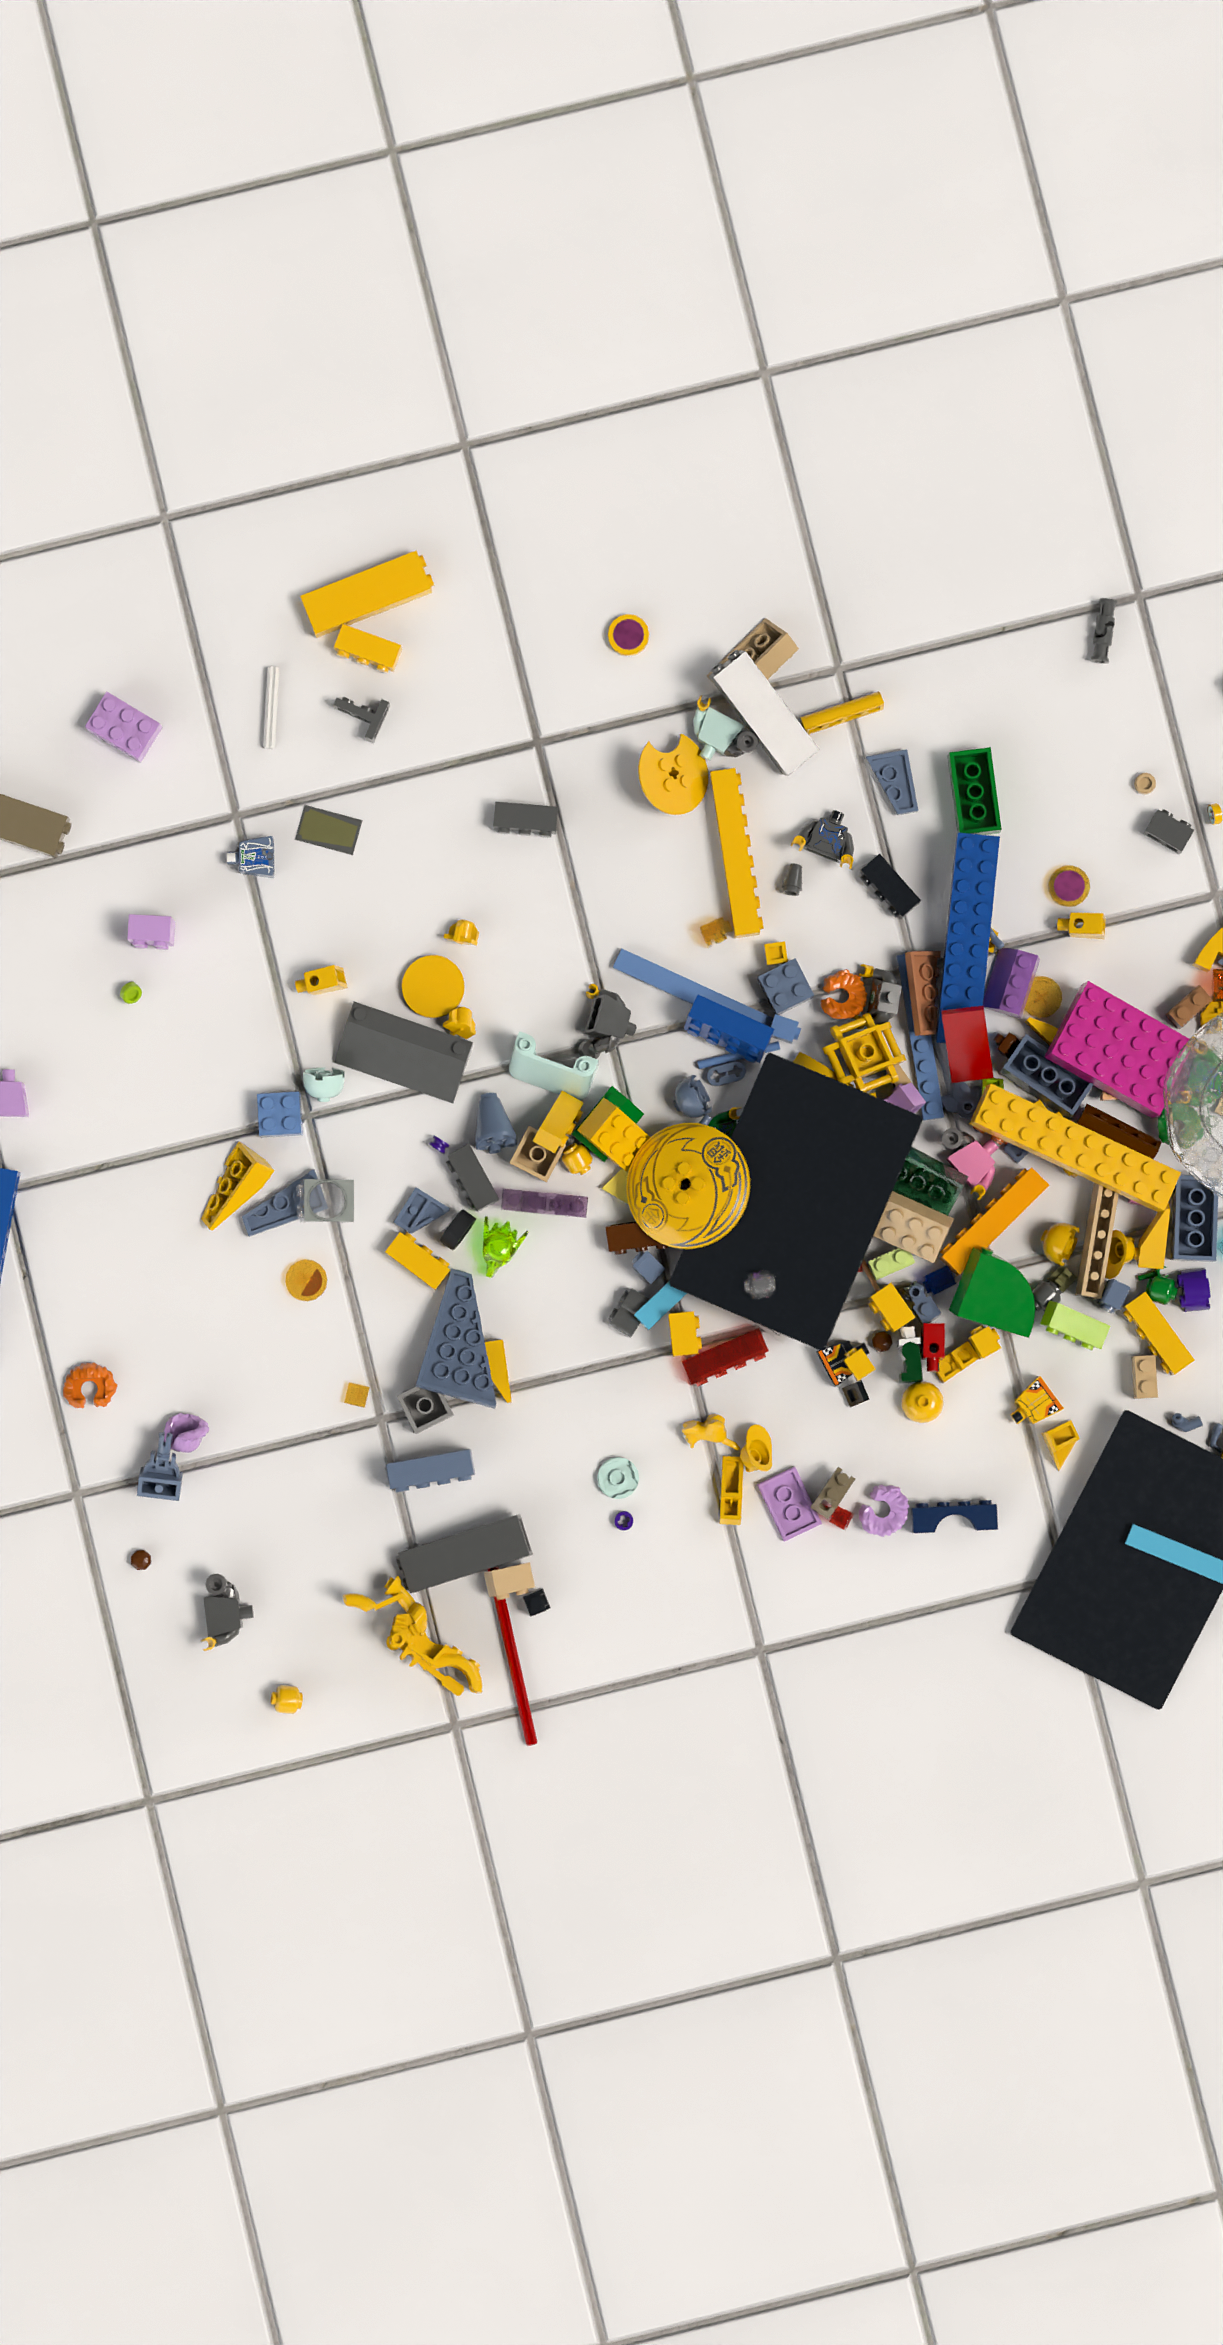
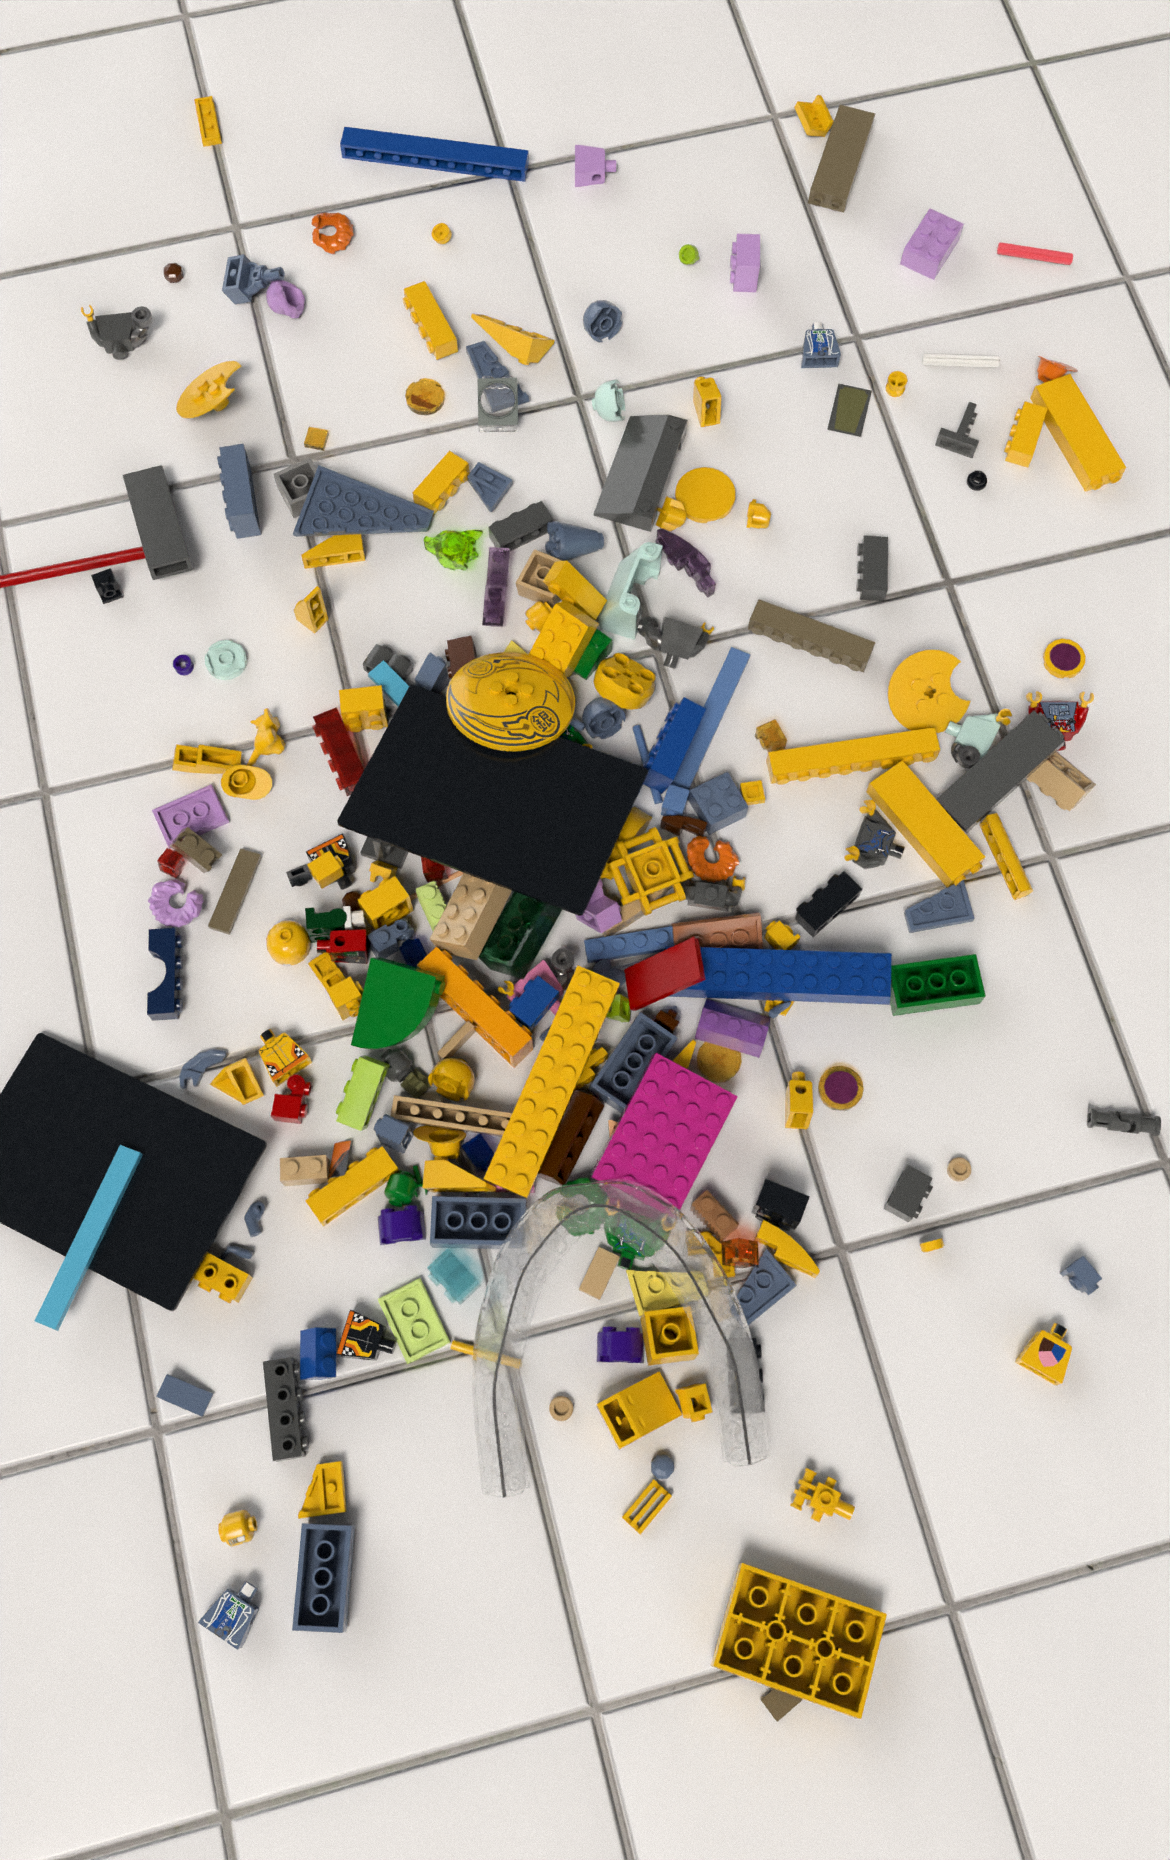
camera: 85 degrees right, 15 degrees down
(95, 1264) = (441, 233): none -> yellow tile
(134, 615) = (1035, 253): none -> coral axle
(216, 1274) = (430, 320): none -> yellow brick
(217, 1090) = (602, 320): none -> sand blue cylinder
(280, 1114) = (579, 368): medium blue brick -> none
(287, 609) = (1050, 369): none -> orange piece
(287, 1699) = (34, 383): yellow head -> none
(304, 778) = (896, 384): none -> yellow wheel
(306, 1514) = (207, 391): none -> yellow piece
(410, 1636) = (75, 477): yellow piece -> none
(421, 697) = (977, 476): none -> black plate
(439, 1144) = (553, 499): dark purple bush -> none
(458, 1229) = (470, 511): black tyre -> none
(506, 1013) = (684, 555): none -> clear purple slope
(509, 1580) = (128, 559): tan brick -> none
(570, 1392) = (312, 610): none -> yellow slope
(602, 886) = (811, 636): none -> dark tan brick
(658, 1075) = (624, 682): none -> yellow piece
(700, 648) = (1064, 716): none -> torso
(728, 1078) = (632, 748): sand blue beam -> none
(760, 1284) = (406, 760): clear head -> none
(793, 881) = (828, 811): dark grey cone -> none
(807, 1026) = (677, 824): none -> reddish brown slope
(809, 787) = (925, 824): none -> yellow brick
(850, 1313) = (381, 869): none -> yellow tile
(868, 1456) = (234, 891): none -> dark tan tile
(923, 933) = (781, 936): none -> yellow brick
(994, 1166) = (534, 1002): none -> blue brick
(1023, 1240) = (456, 1041): none -> tan tile
(1040, 1481) = (198, 1064): none -> sand blue piece
(1085, 1392) = (292, 1107): none -> red brick
(1130, 1218) = (478, 1153): none -> clear blue brick
(1134, 1346) = (339, 1159): none -> sticker
(1181, 947) = (780, 1205): none -> black brick

